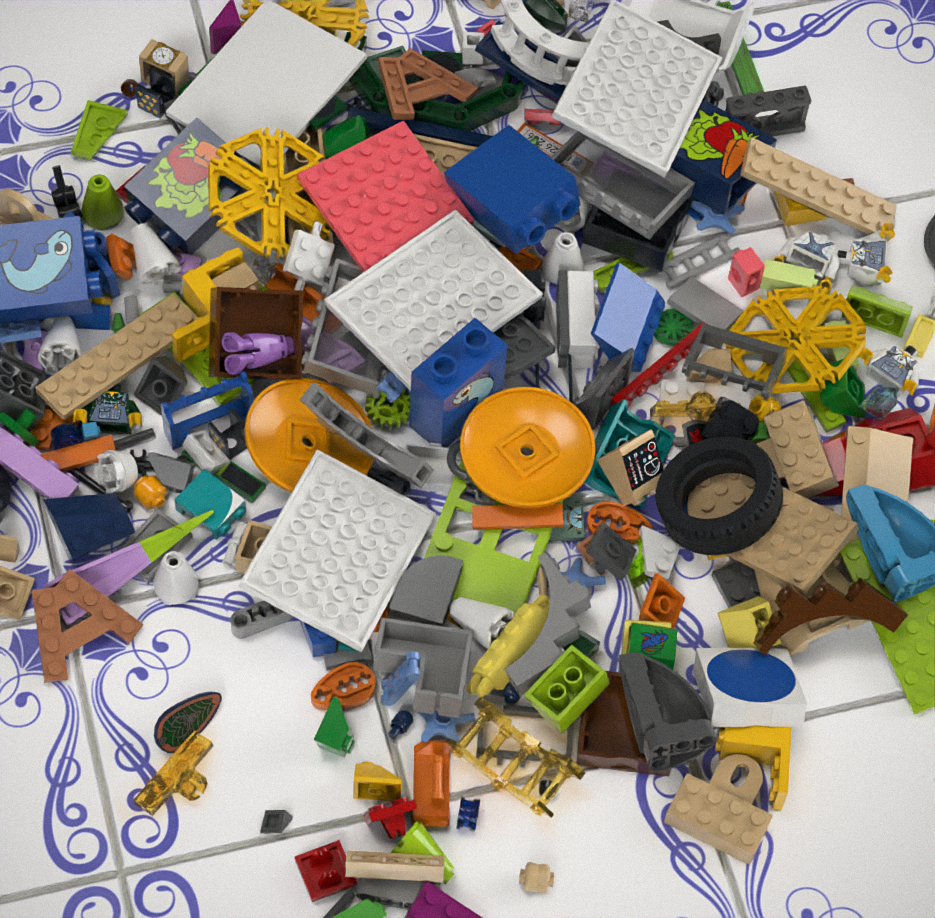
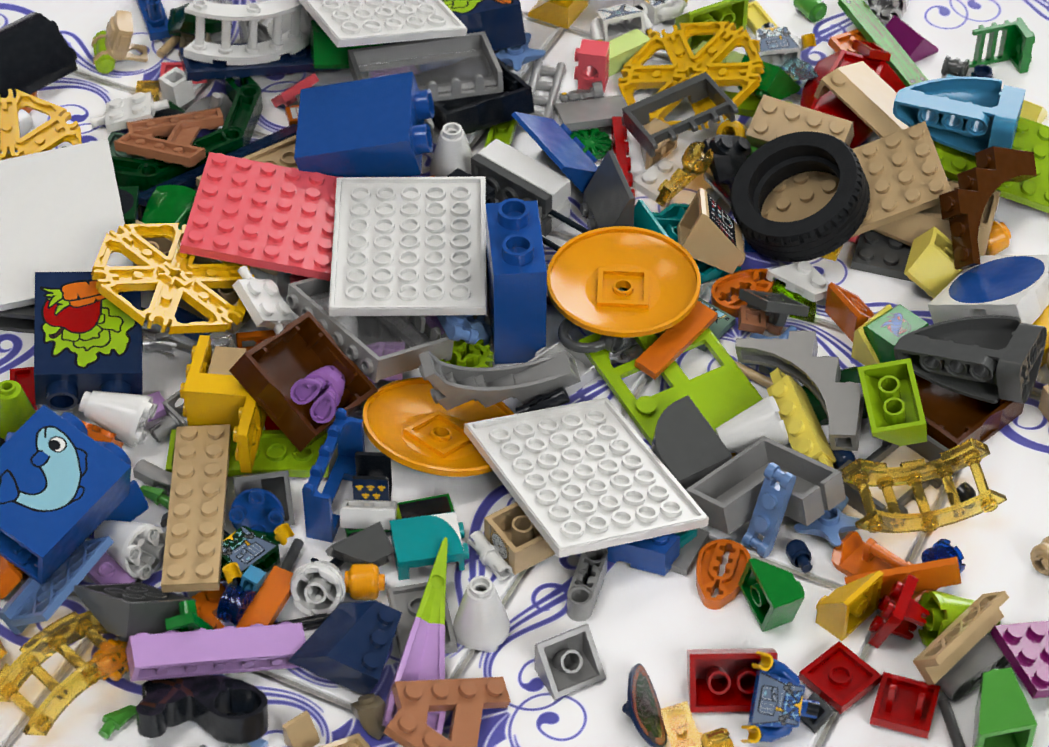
camera: 45 degrees left, 15 degrees down
(52, 569) = (370, 713): none -> dark tan plate
(145, 392) = (257, 510): none -> blue dish
(186, 653) = (568, 661): none -> light grey slope
(250, 794) = (776, 702): none -> torso
(256, 755) = (722, 678): none -> red slope
(314, 817) = (840, 677): none -> red plate
(427, 40) = (129, 109): none -> white plate
(427, 802) = (930, 575): none -> orange tile
(456, 31) = (149, 86): none -> clear yellow tile
(729, 292) = (595, 91): none -> light grey piece
(825, 647) = (998, 238): none -> light orange head

